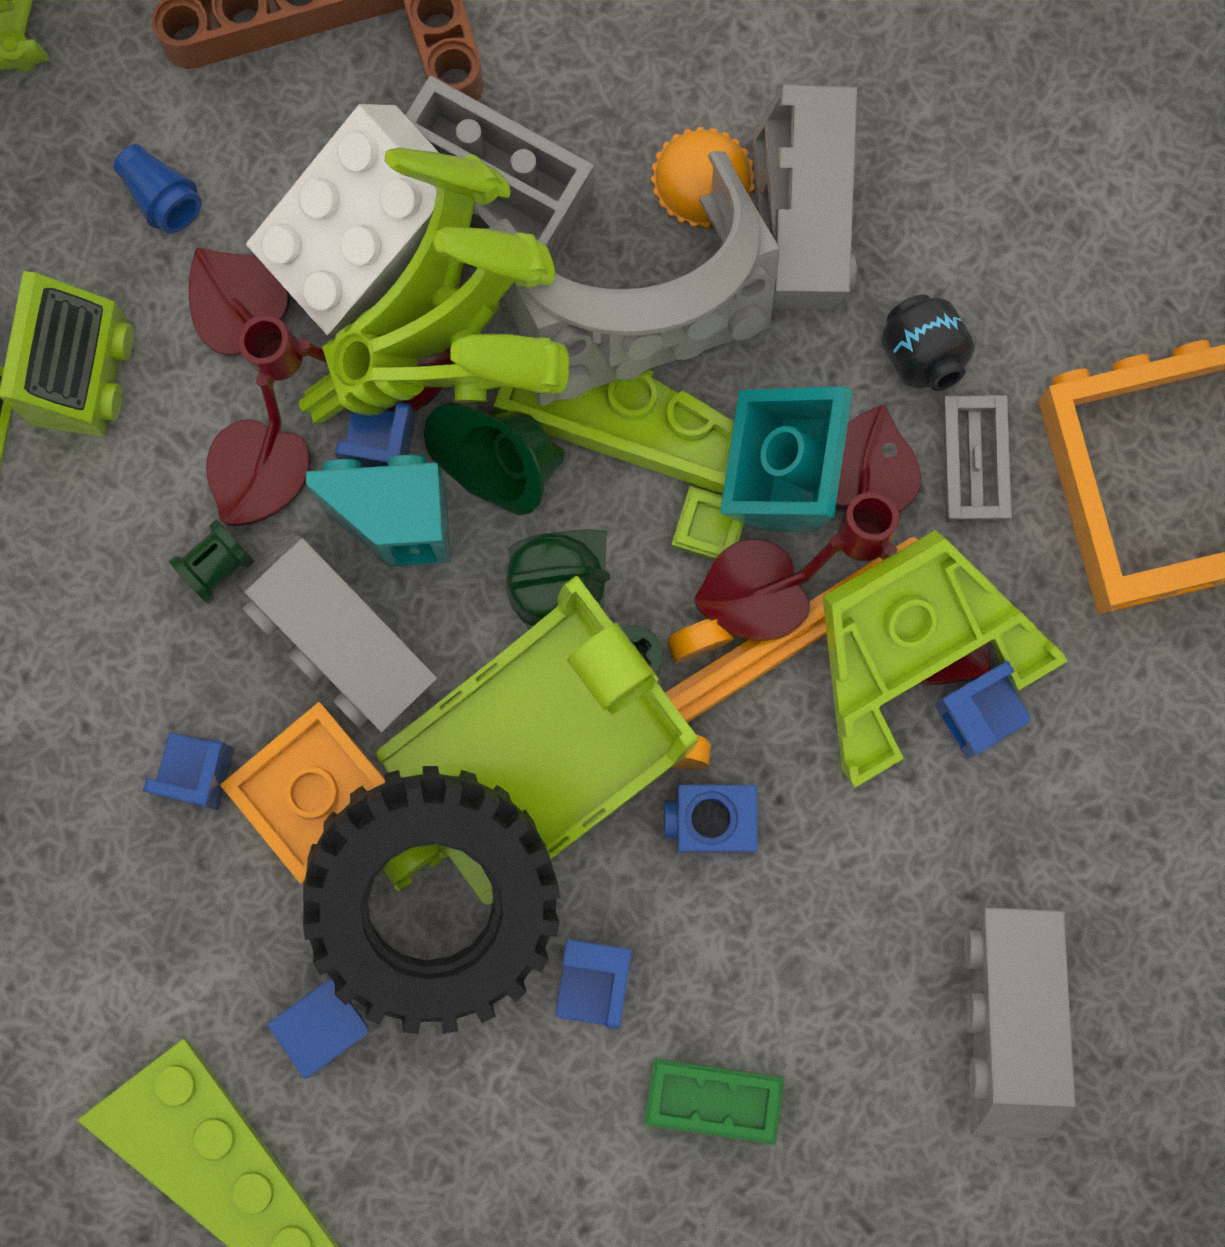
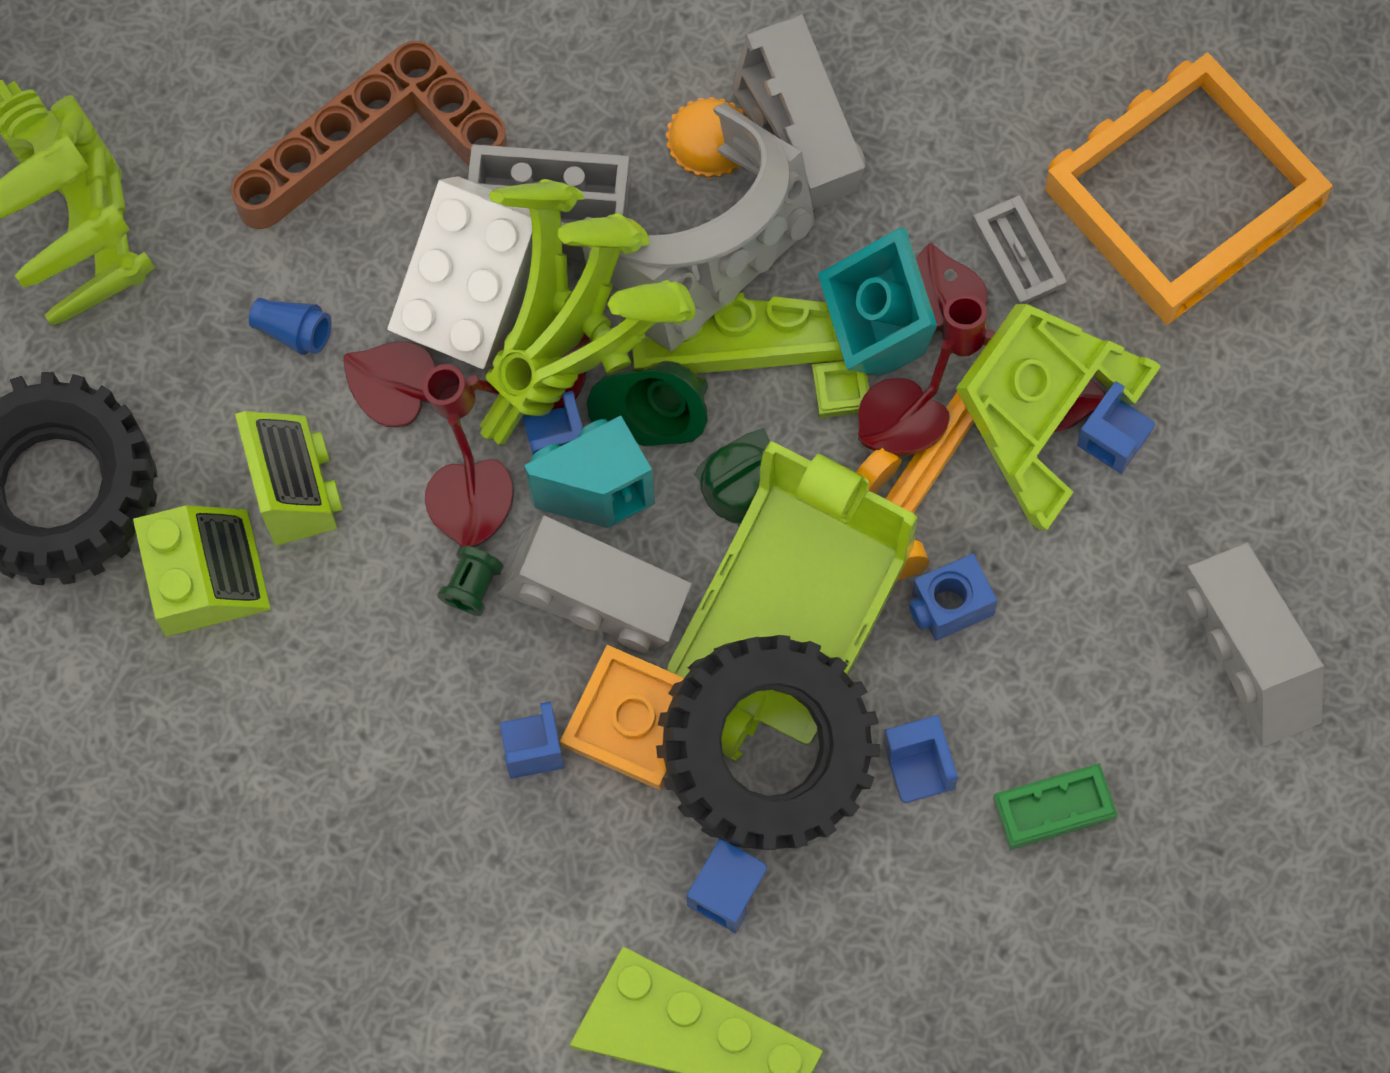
camera: 20 degrees left, 10 degrees down
(927, 342) = (941, 181): black head -> none

